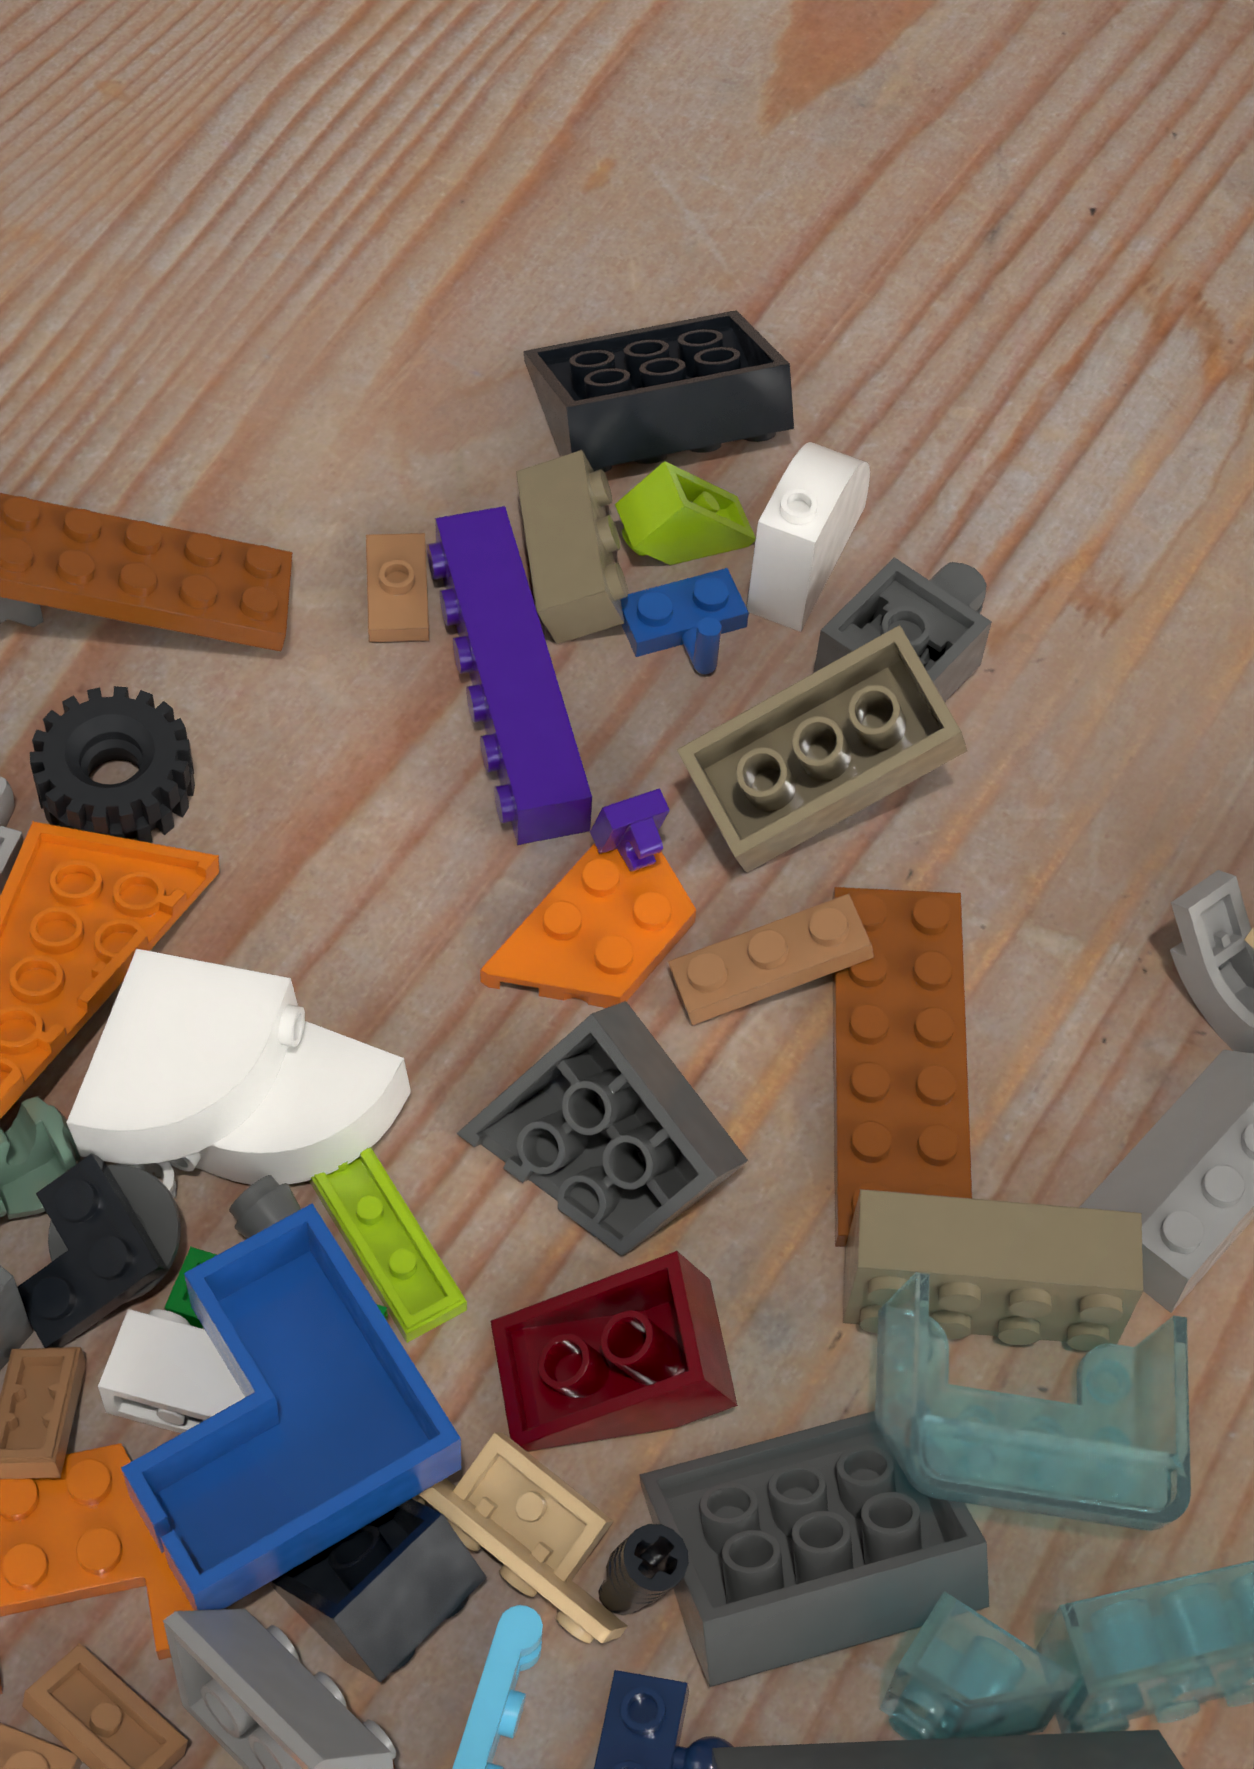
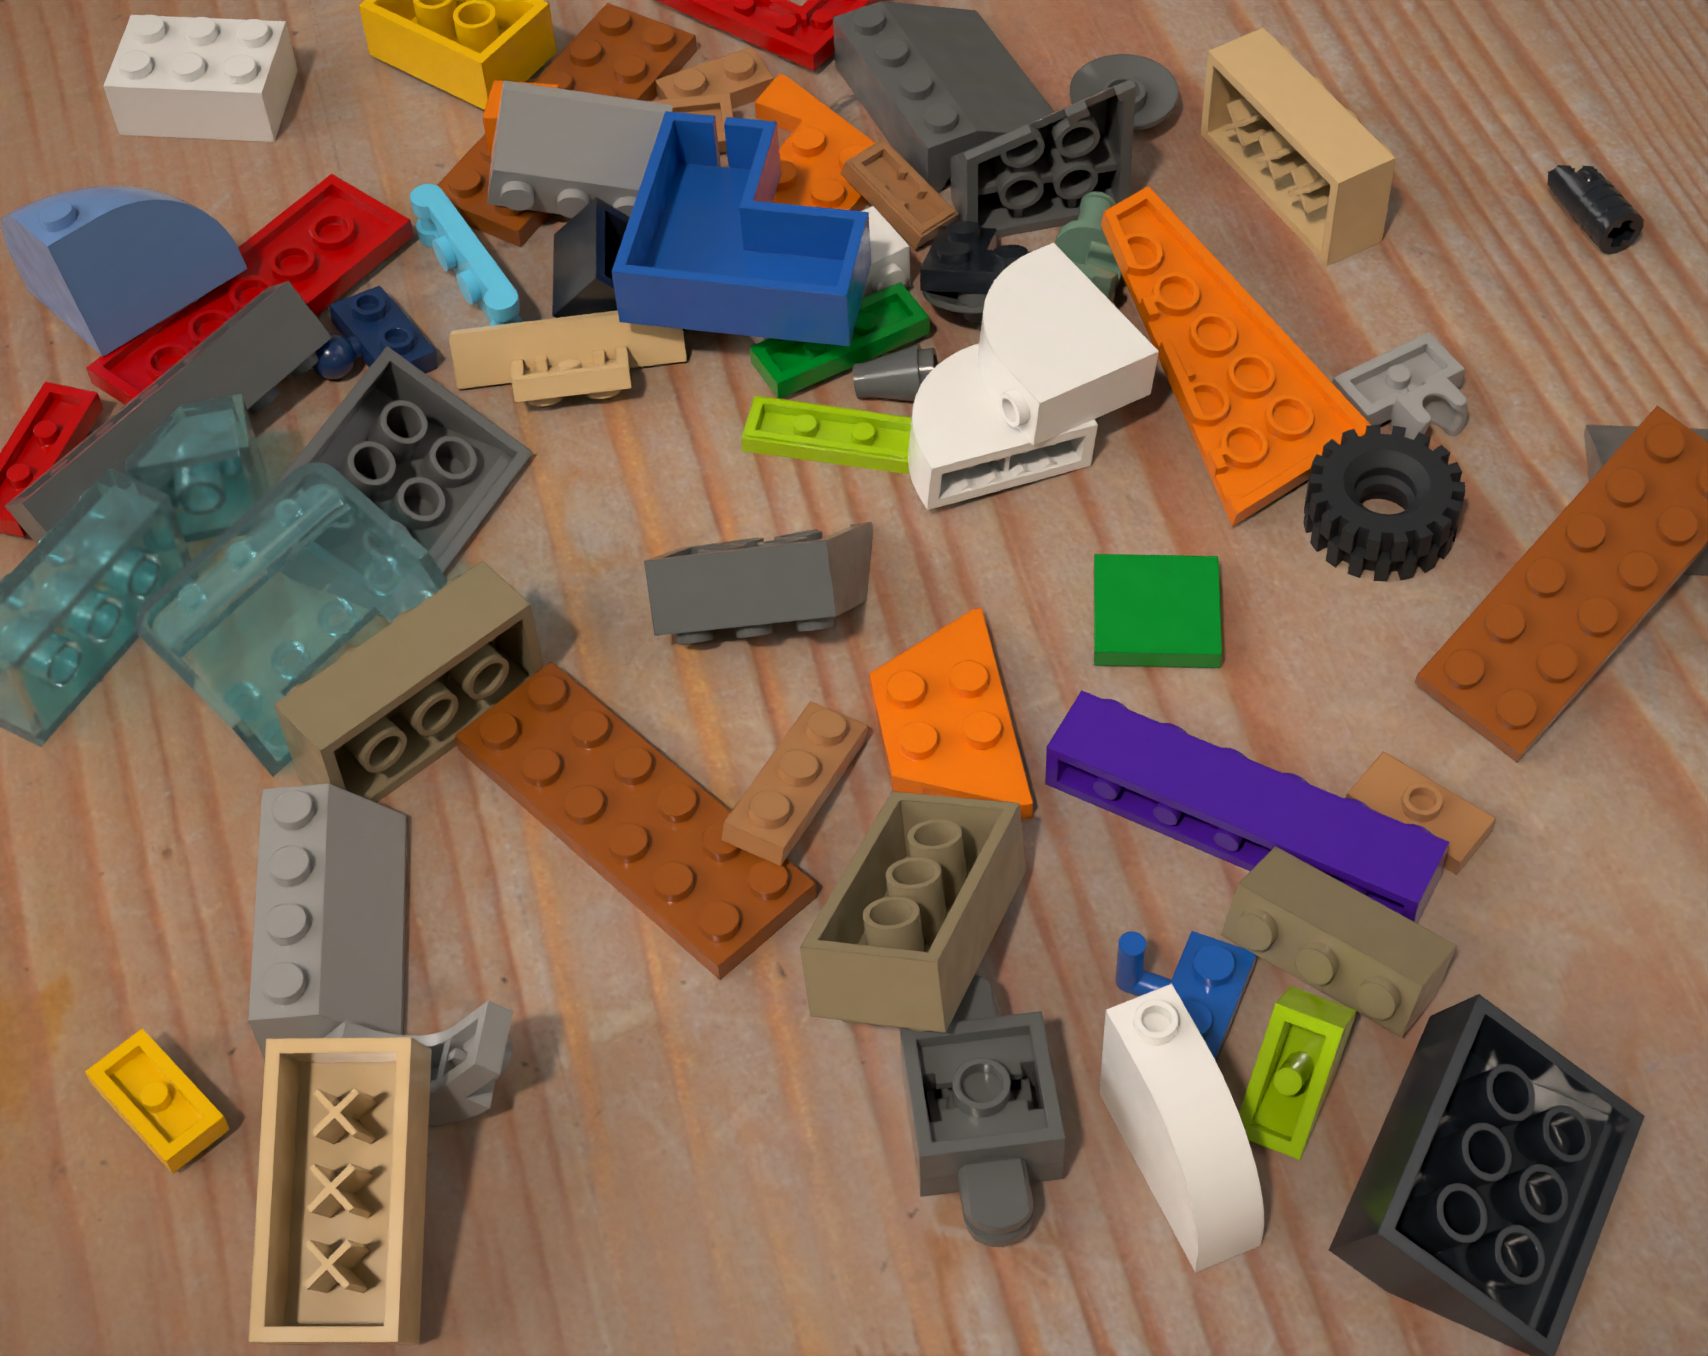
camera: 140 degrees right, 5 degrees down
(361, 861) = (1156, 611): none -> green tile
(614, 1357) = (605, 479): dark red slope -> none
(632, 828) = (991, 753): dark purple tile -> none
(643, 1569) = (460, 367): black hinge -> none

